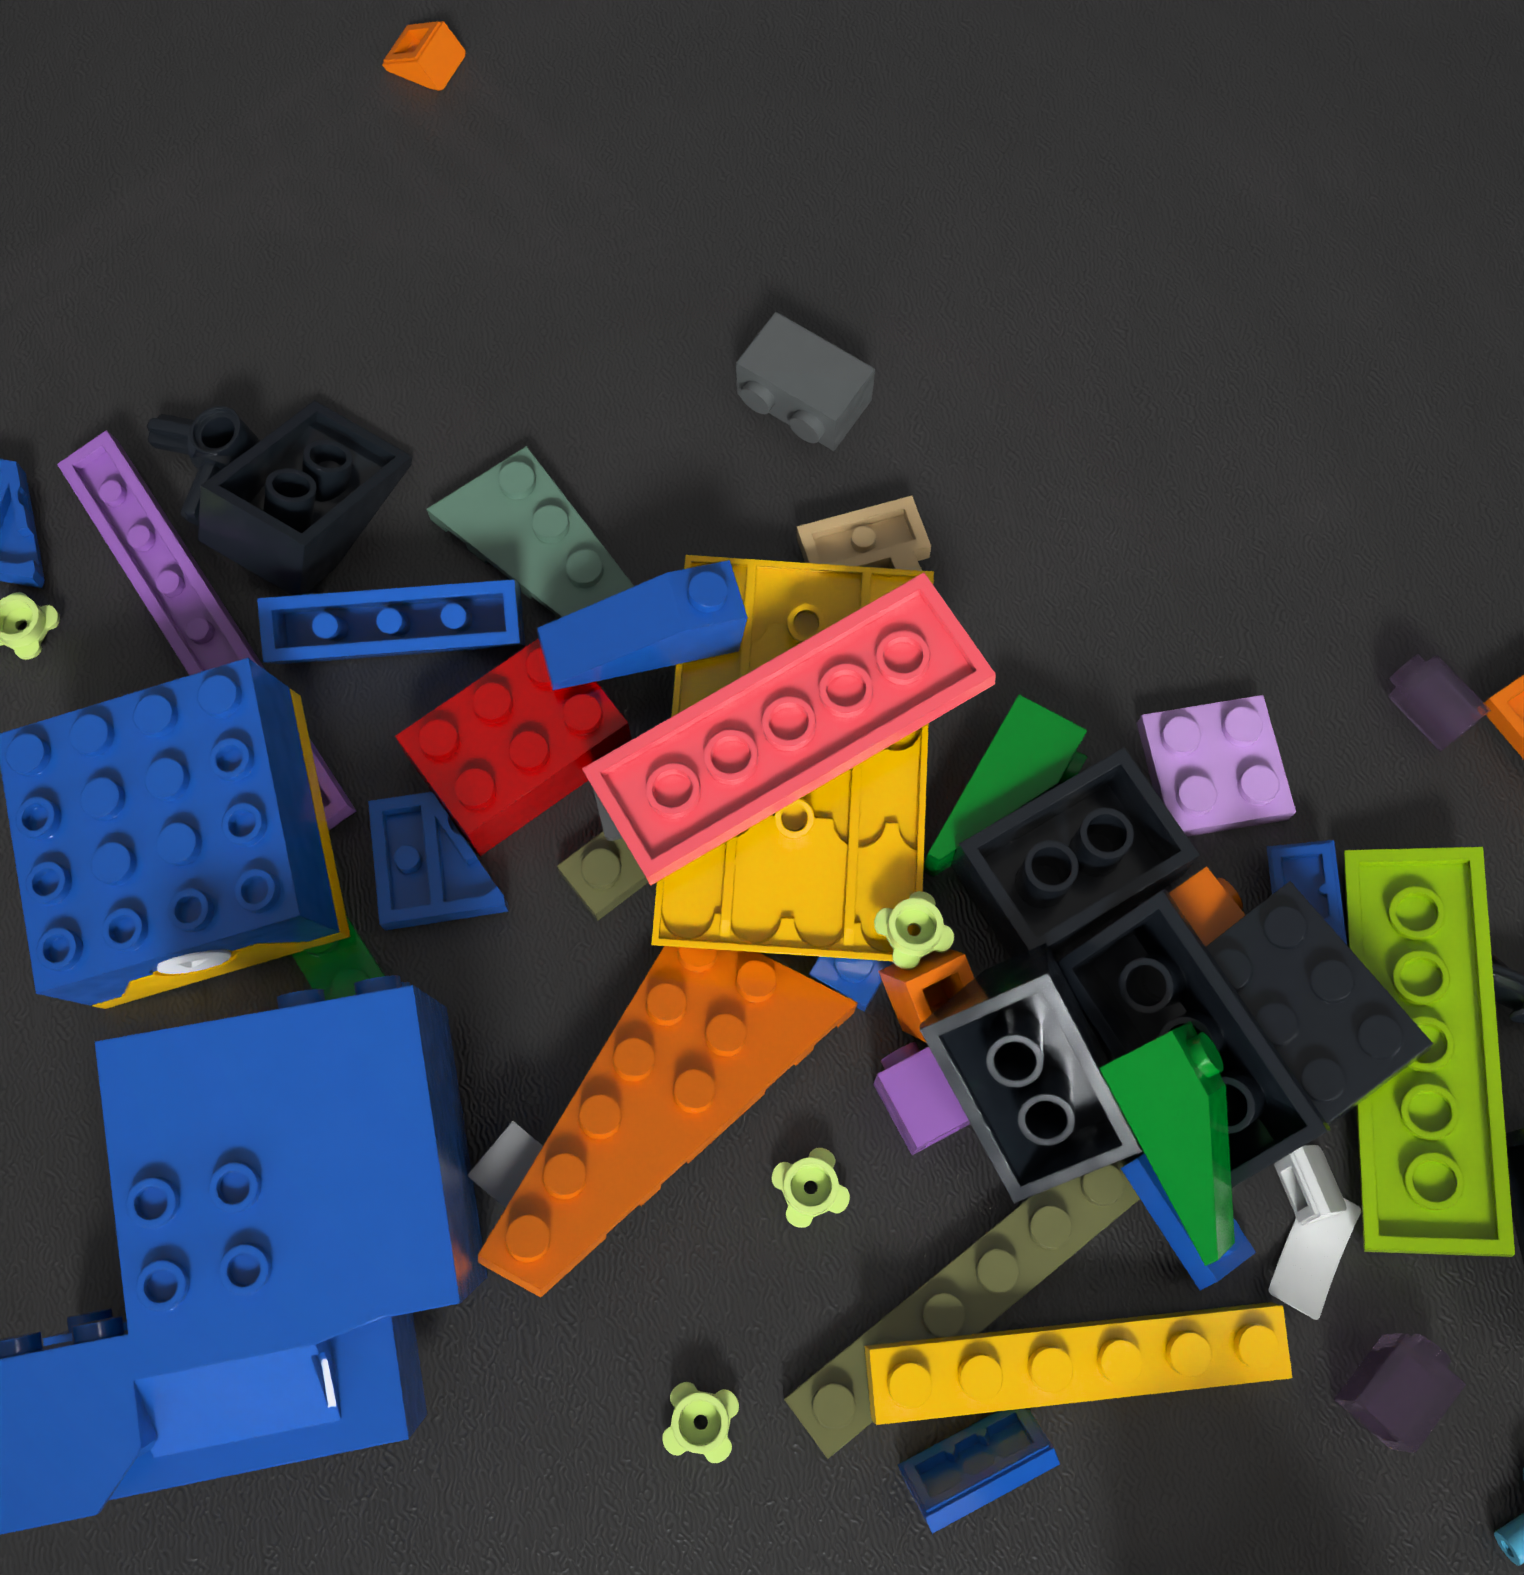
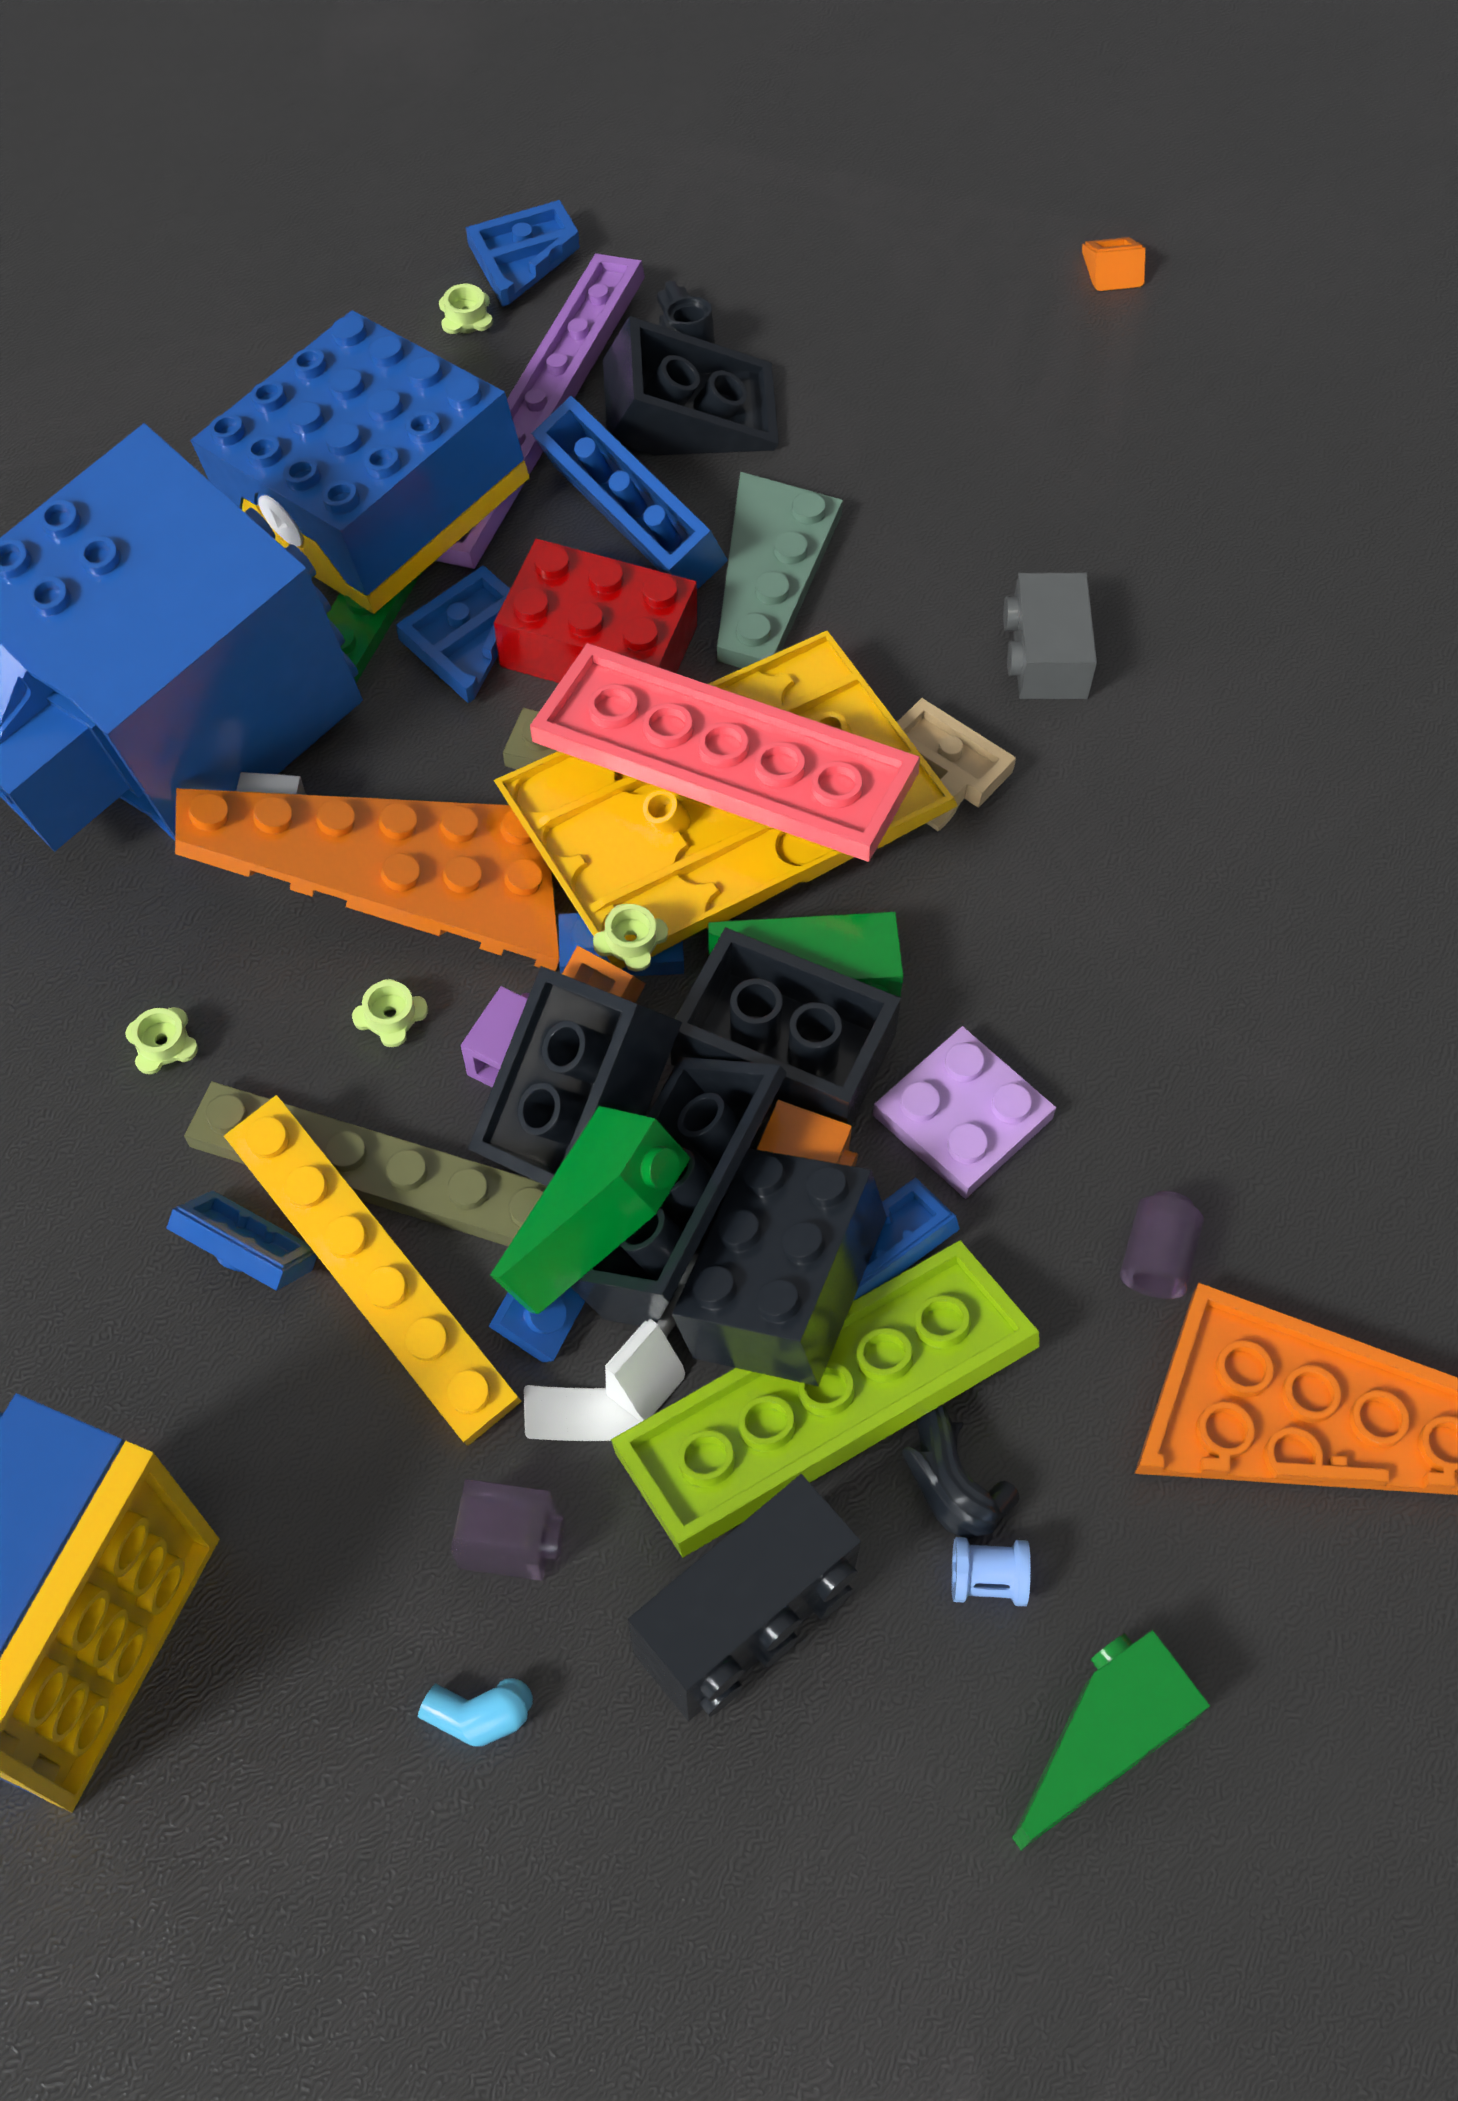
camera: 55 degrees right, 10 degrees down
(647, 627) = (739, 627): blue slope -> none

